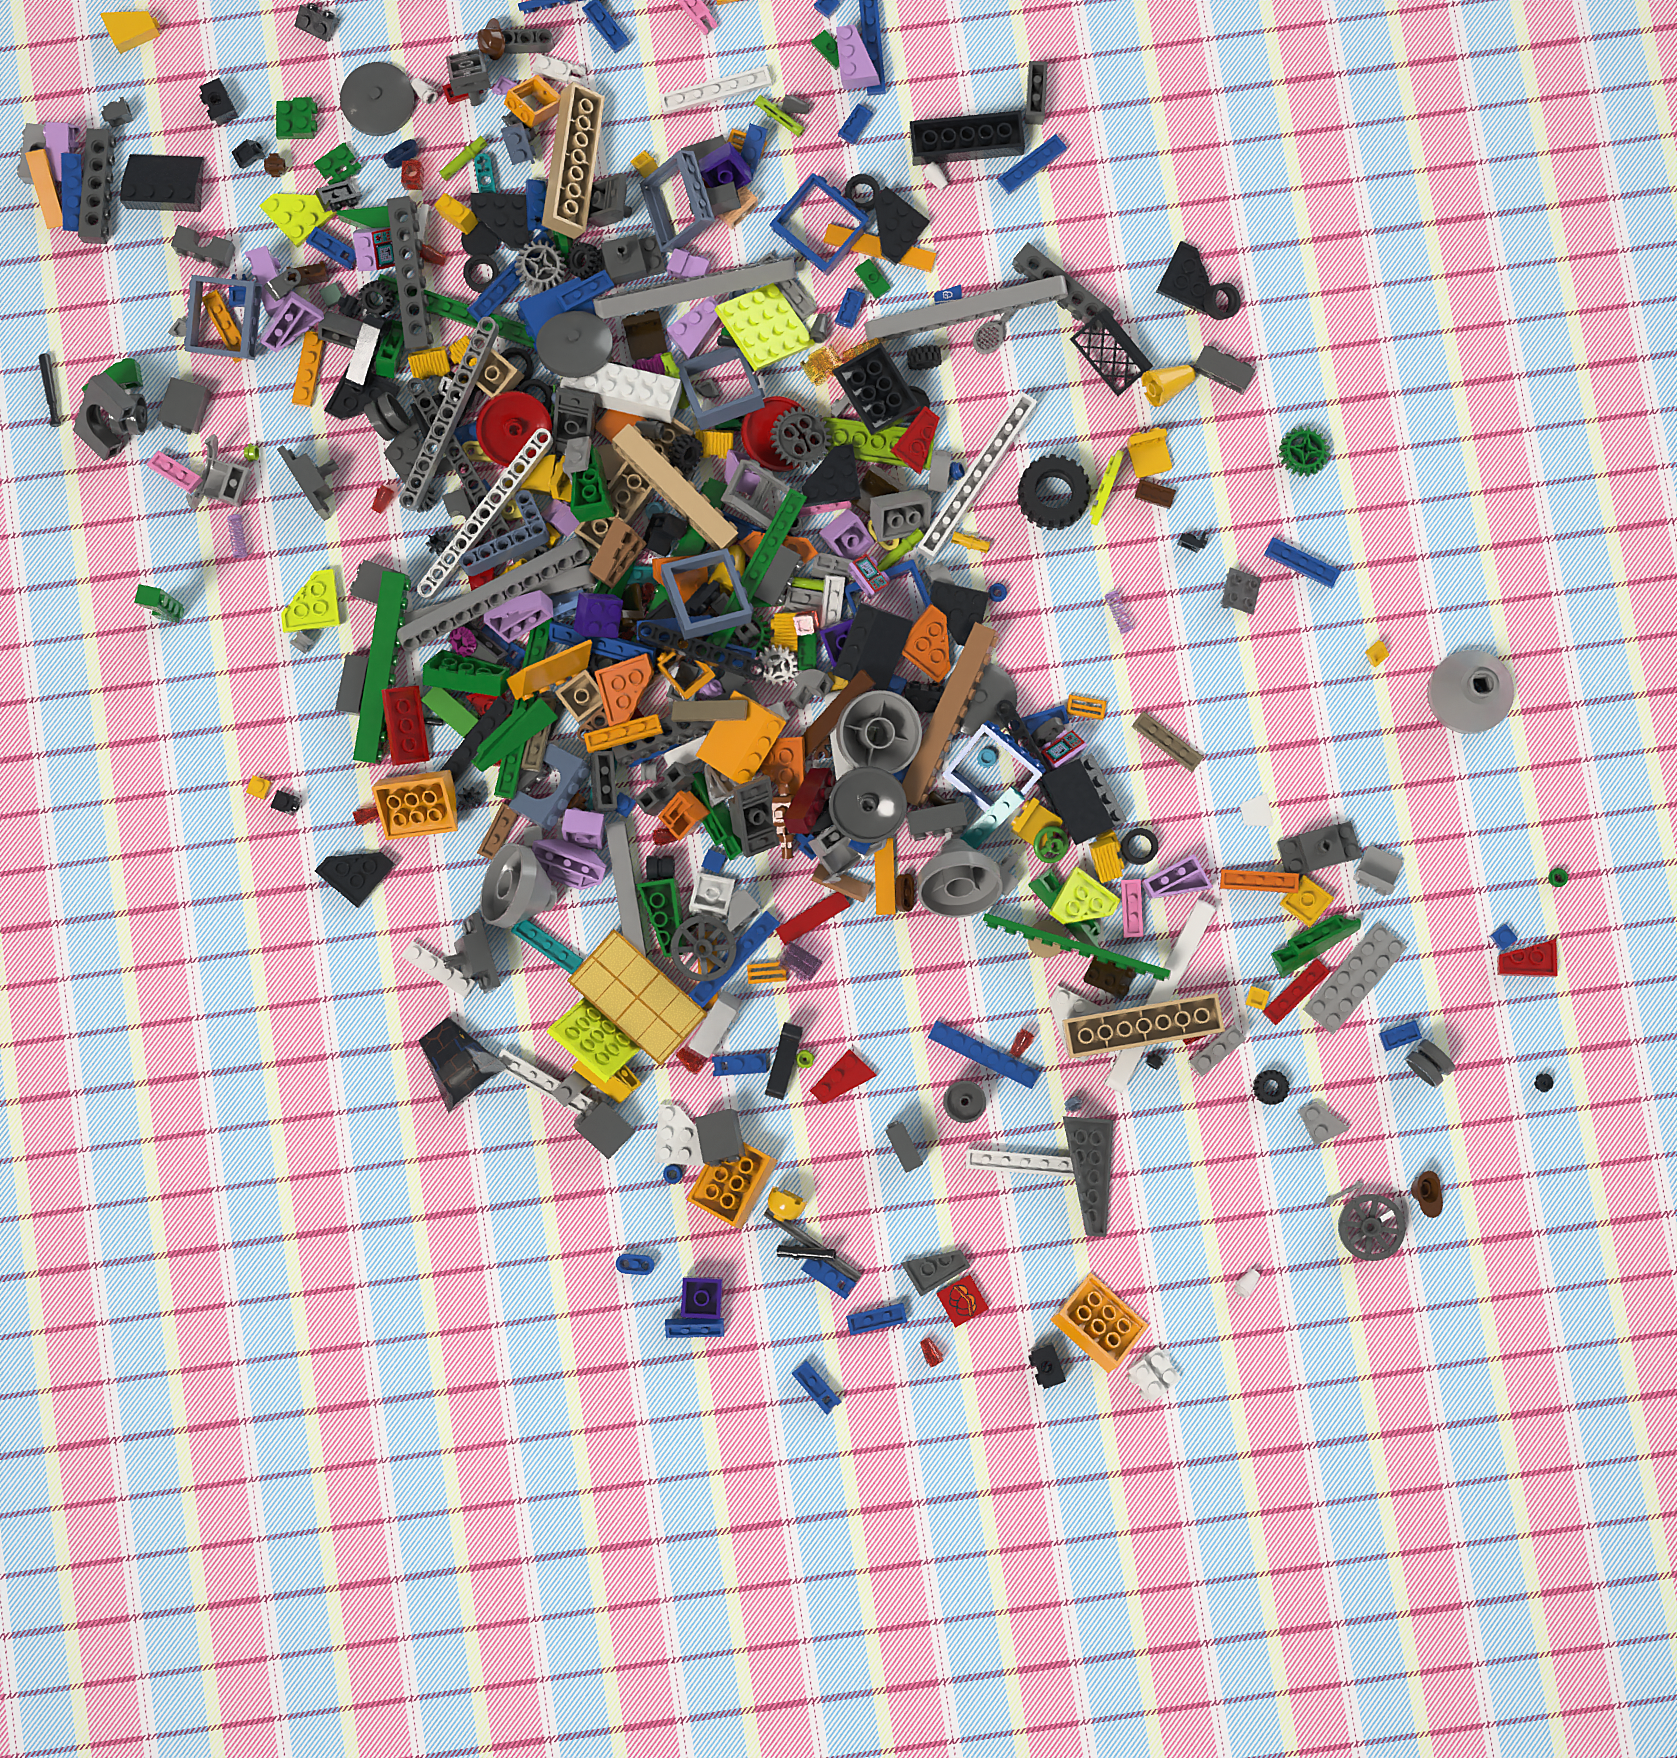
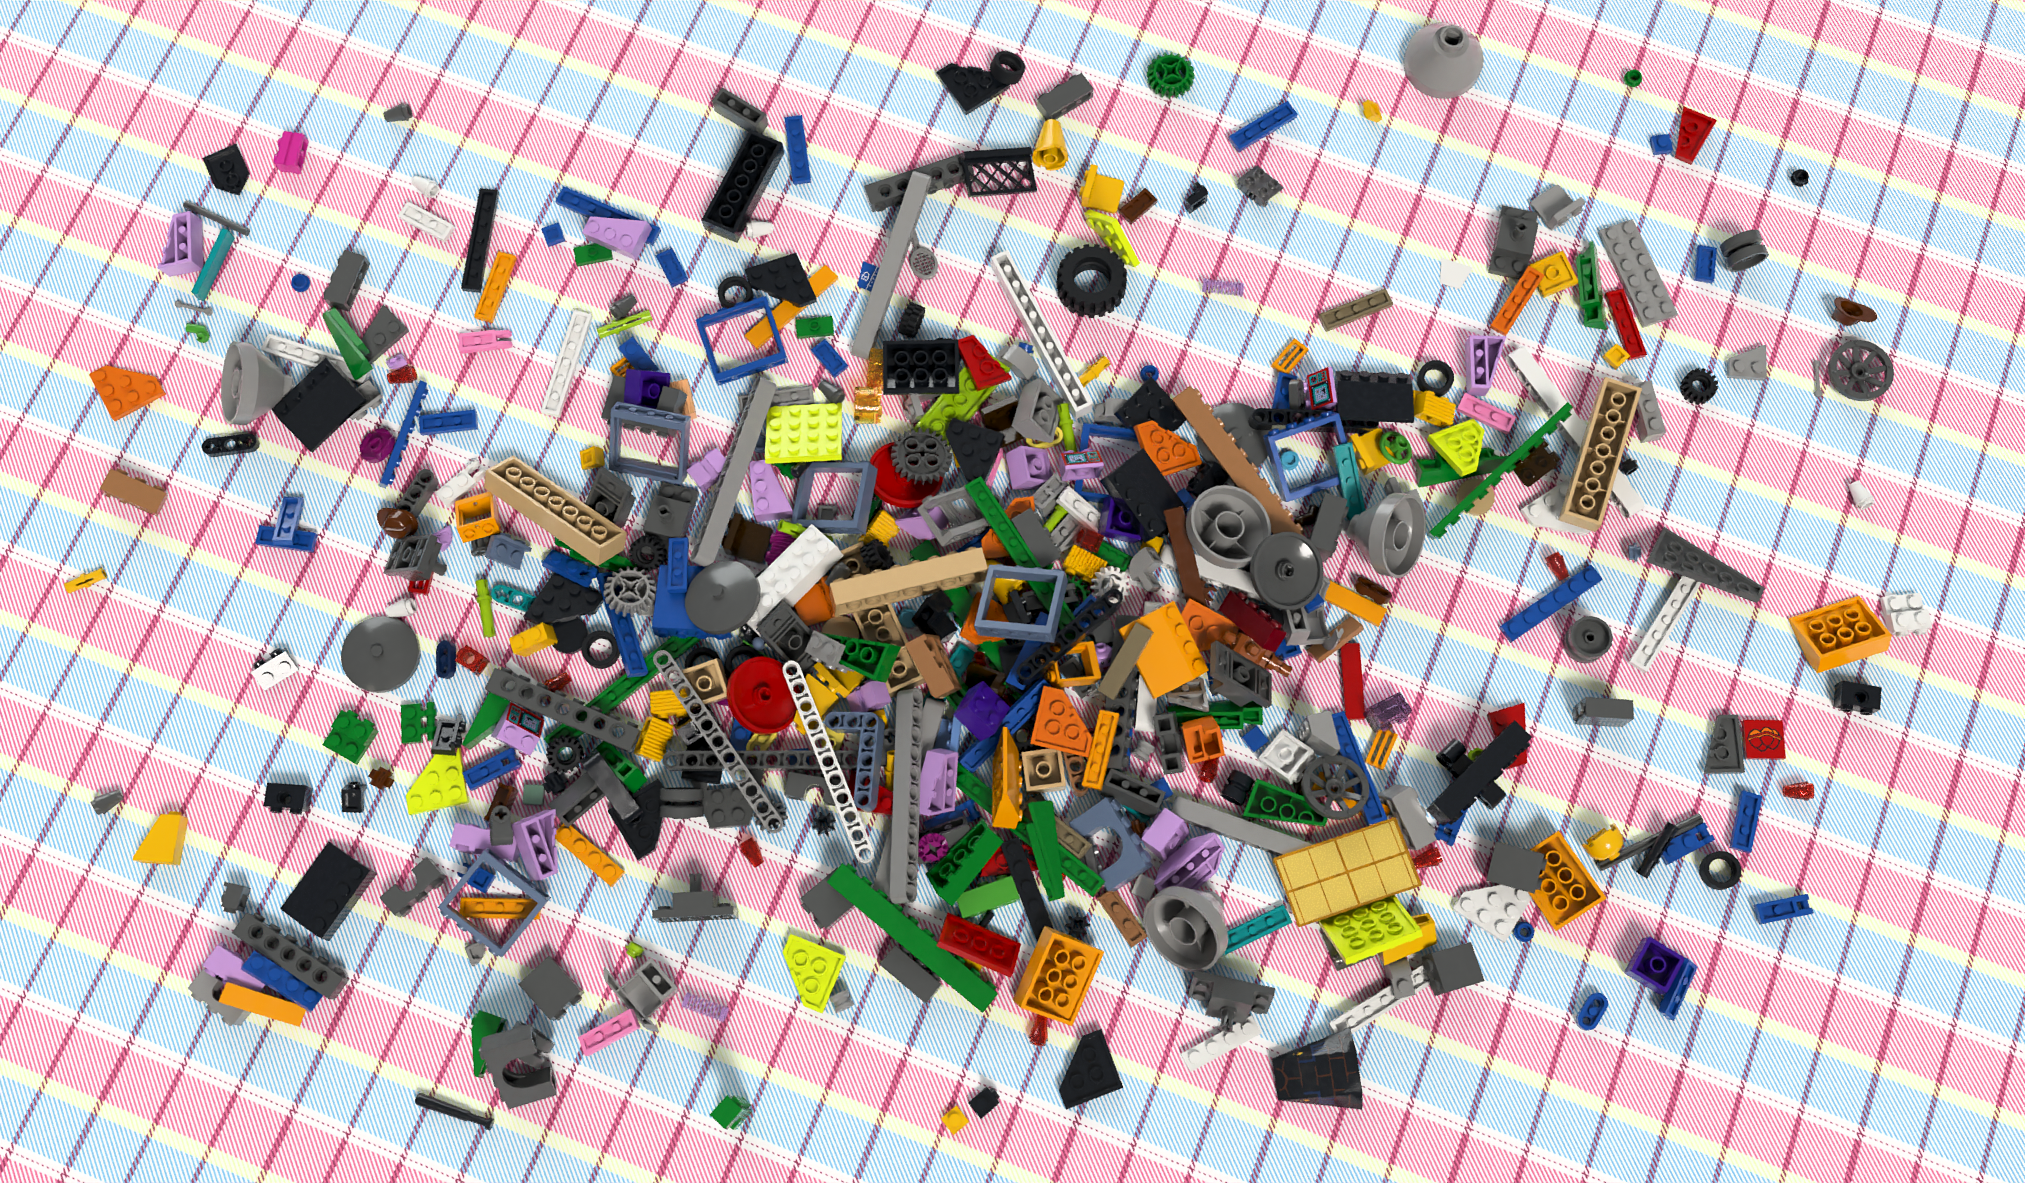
camera: 65 degrees left, 10 degrees down
(782, 1063) = (1481, 770): none -> black brick
(805, 1316) = (1709, 880): none -> black tyre

